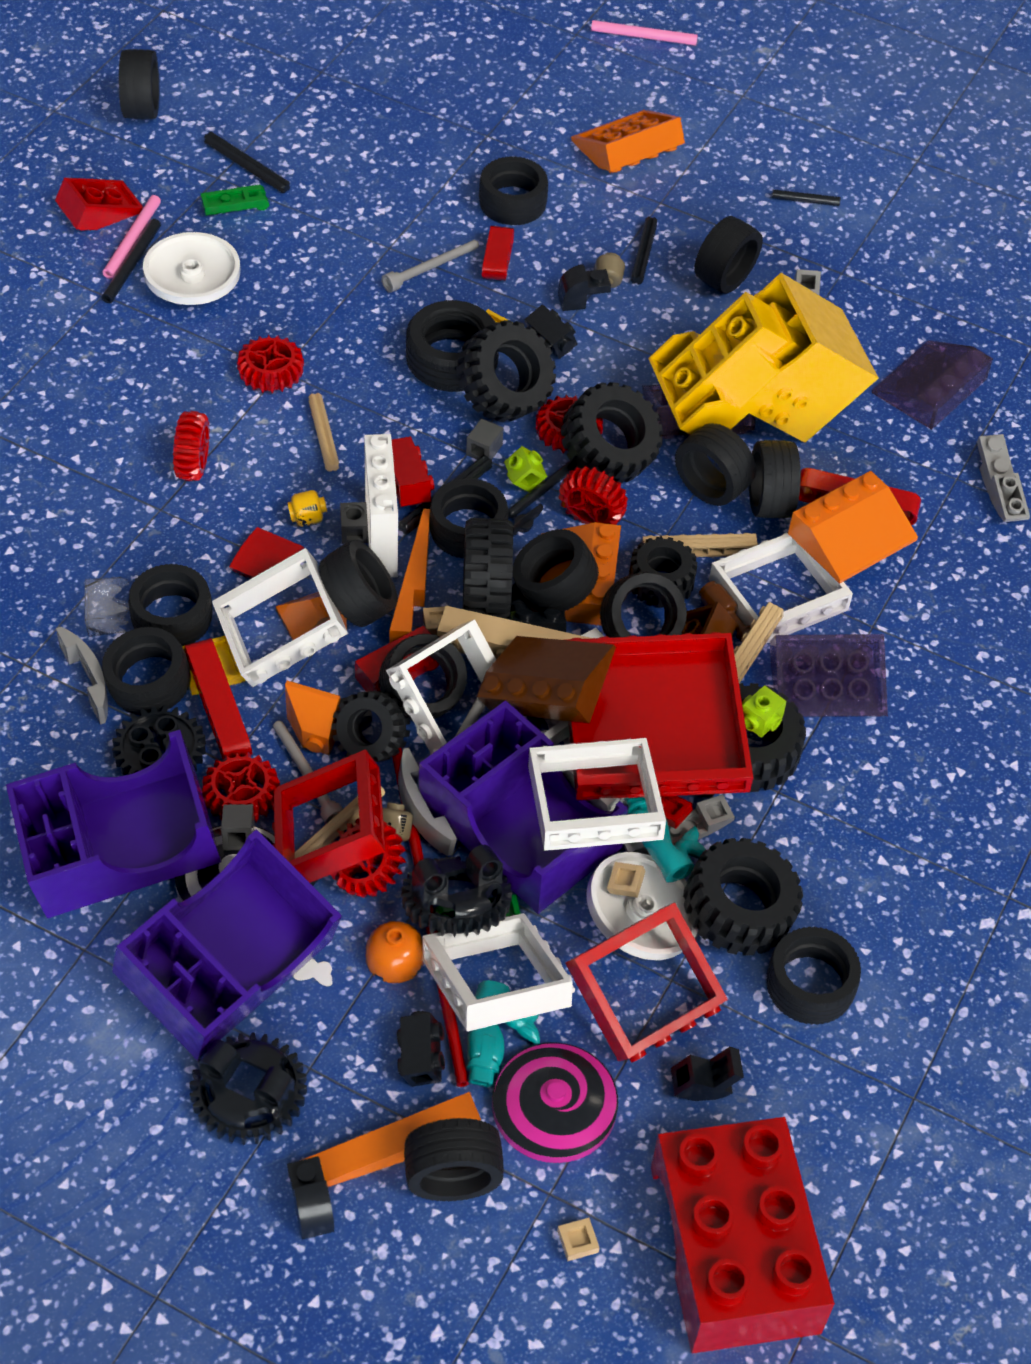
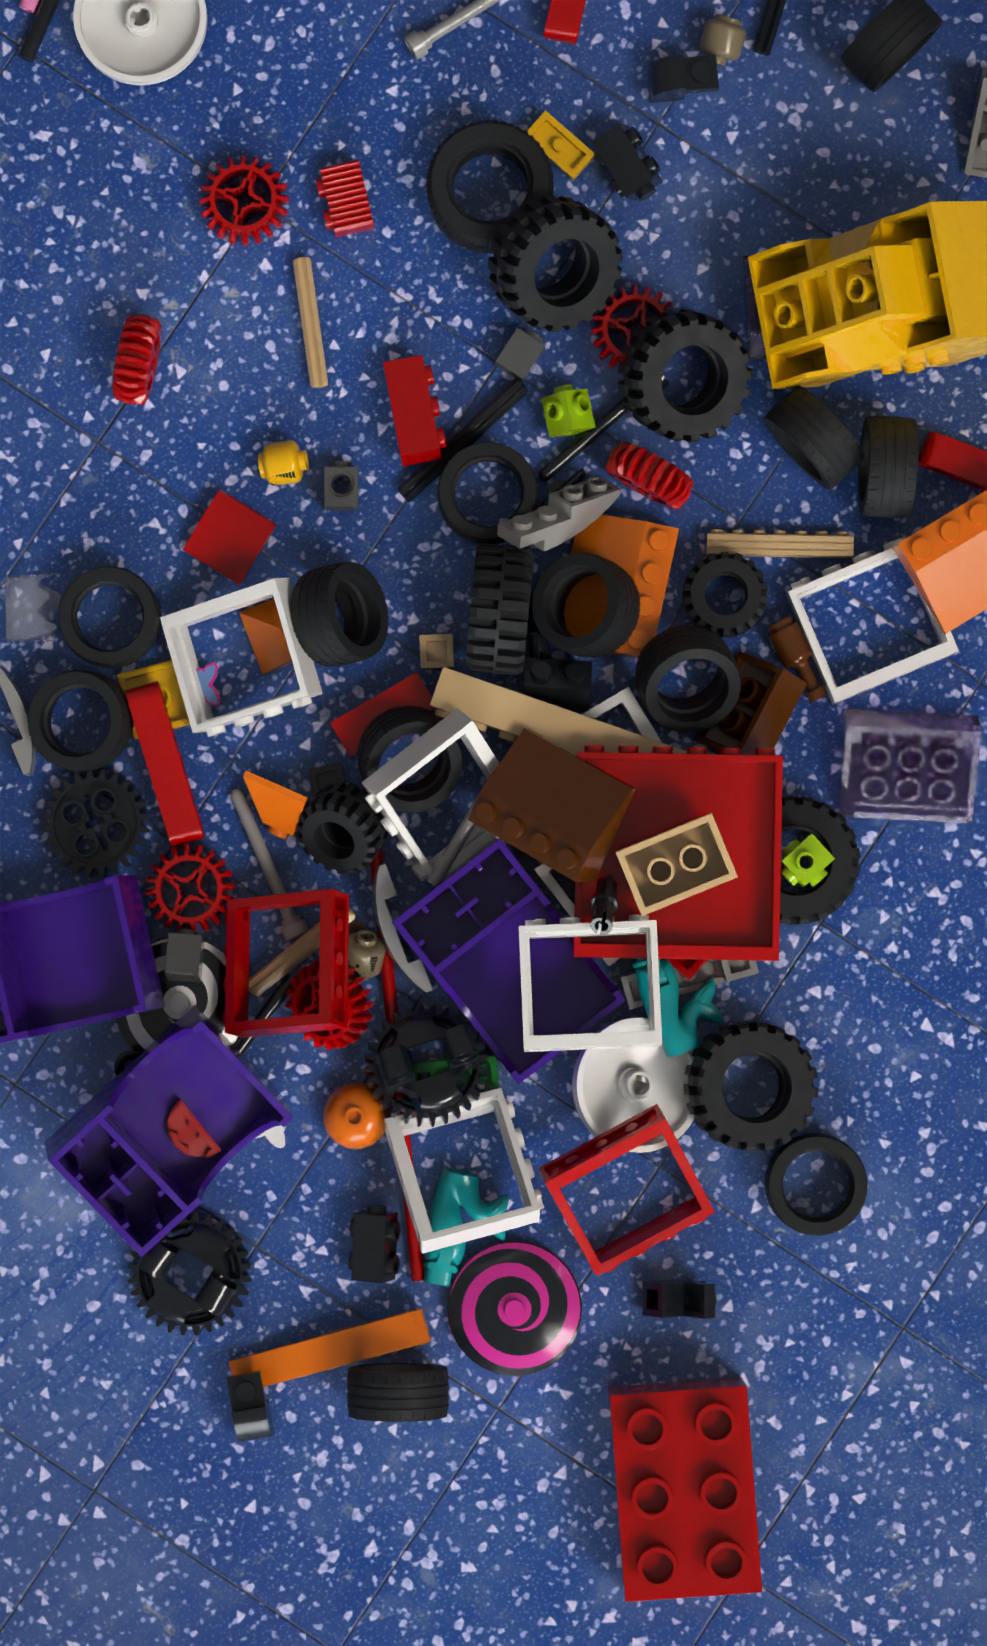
camera: 15 degrees right, 35 degrees up
(245, 961) = (188, 1133): none -> red tile
(250, 647) = (207, 677): none -> medium blue sticker
(346, 360) = (346, 198): none -> red brick
(380, 498) = (373, 493): white window -> none
(414, 582) = (411, 593): orange slope -> none
(531, 519) = (565, 516): none -> light grey slope
(578, 1239) = (521, 1467): tan plate -> none
(600, 731) = (604, 905): none -> black axle
(626, 879) = (619, 1065): tan plate -> none
(657, 700) = (676, 864): none -> tan brick
(757, 637) = (818, 725): tan piece -> none

